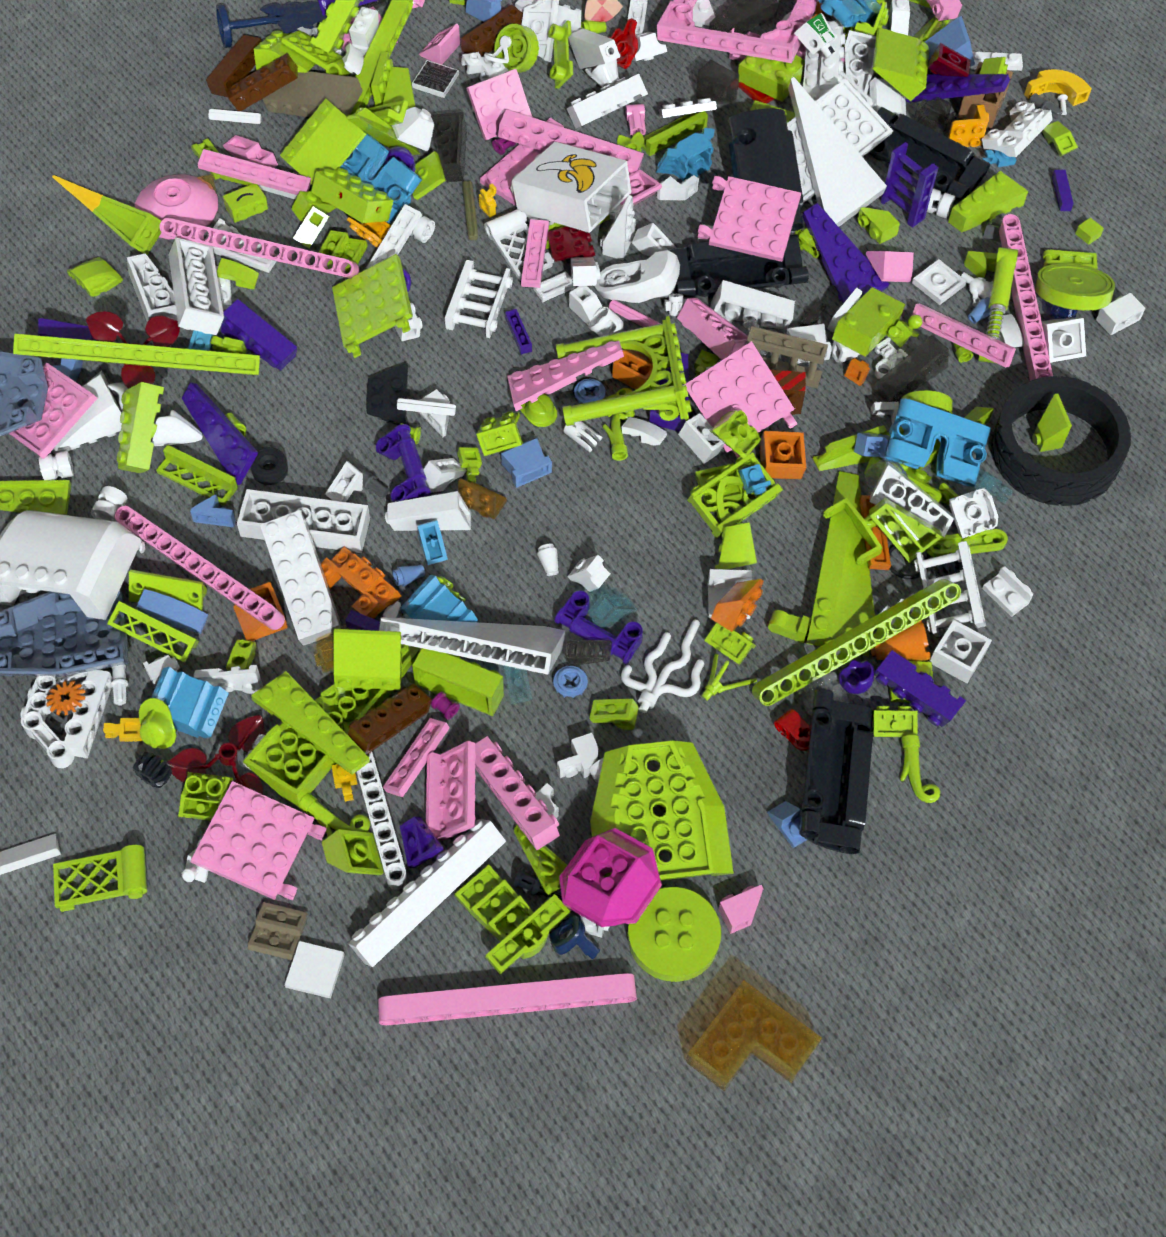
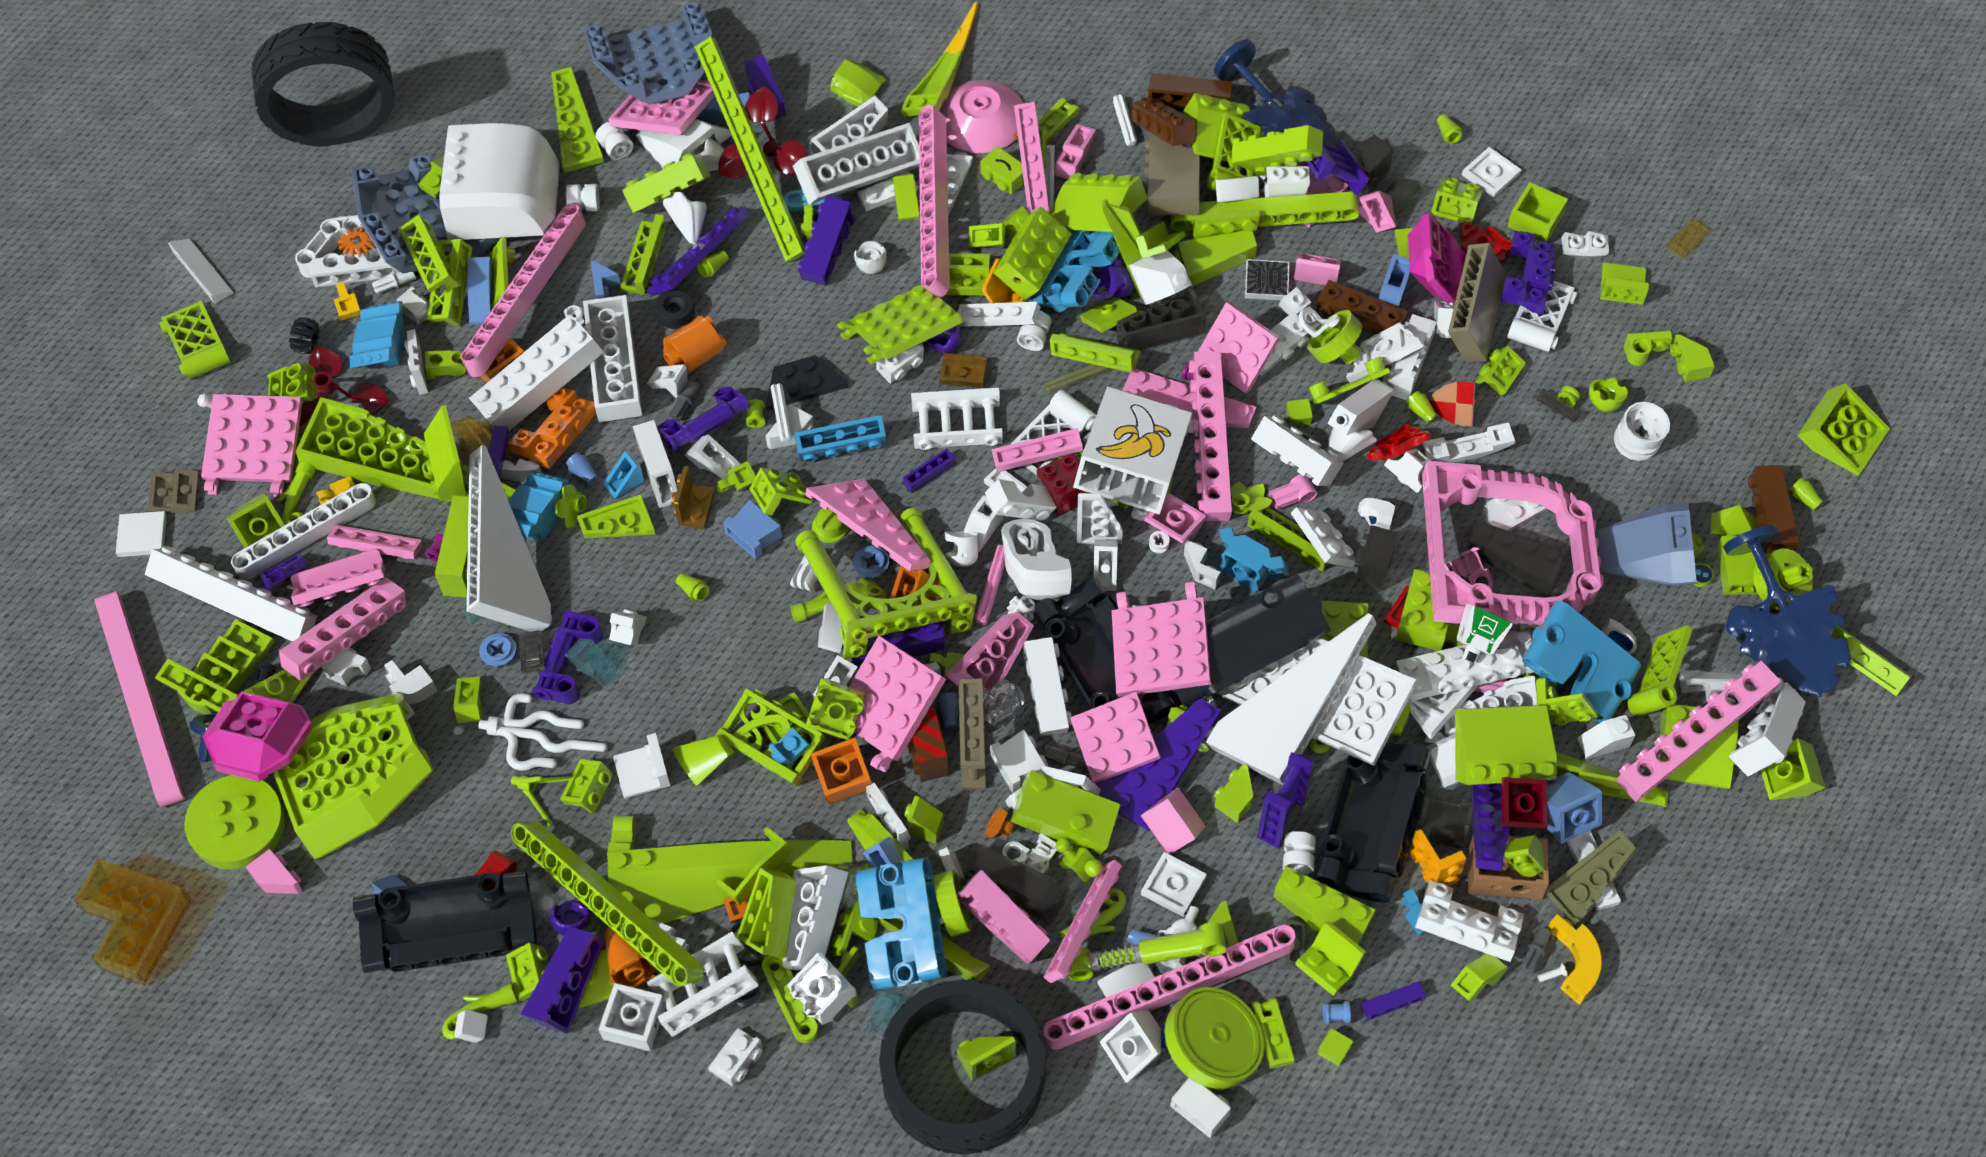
camera: 75 degrees right, 0 degrees up
(25, 610) = (432, 181): none -> lime slope
(122, 626) = (434, 250): none -> lime fence
(156, 724) = (345, 320): lime piece -> none
(236, 540) = (575, 311): none -> white plate
(288, 312) = (870, 257): none -> white hair
(299, 711) = (382, 427): lime wing -> none
(320, 454) = (693, 344): none -> orange cylinder
(389, 718) = (402, 501): reddish brown brick -> none
(431, 283) = (963, 370): none -> pearl gold plate
(458, 193) = (1094, 352): none -> lime fence
(466, 376) = (840, 438): none -> dark azure brick
(474, 558) = (617, 520): none -> lime wing
(487, 202) = (1095, 385): yellow plate -> none
(549, 559) = (639, 586): white cone -> none
(564, 520) = (693, 587): none -> lime cone
(566, 95) = (1299, 412): none -> lime piece
(646, 205) = (1159, 548): none -> white bush
(674, 77) = (1377, 512): none -> white rock
(737, 604) = (617, 771): orange slope -> none
(816, 273) = (1115, 738): none -> bright pink plate
(822, 437) = (888, 815): none -> white wing
(843, 415) = (923, 820): none -> lime slope
(934, 775) = (471, 1026): none -> white piece
(948, 378) = (1003, 917): none -> bright pink wedge
(999, 45) = (1587, 881): none -> olive wing
(1025, 204) = (1331, 958): none -> lime bracket
(1064, 224) = (1336, 1012): none -> medium blue bush

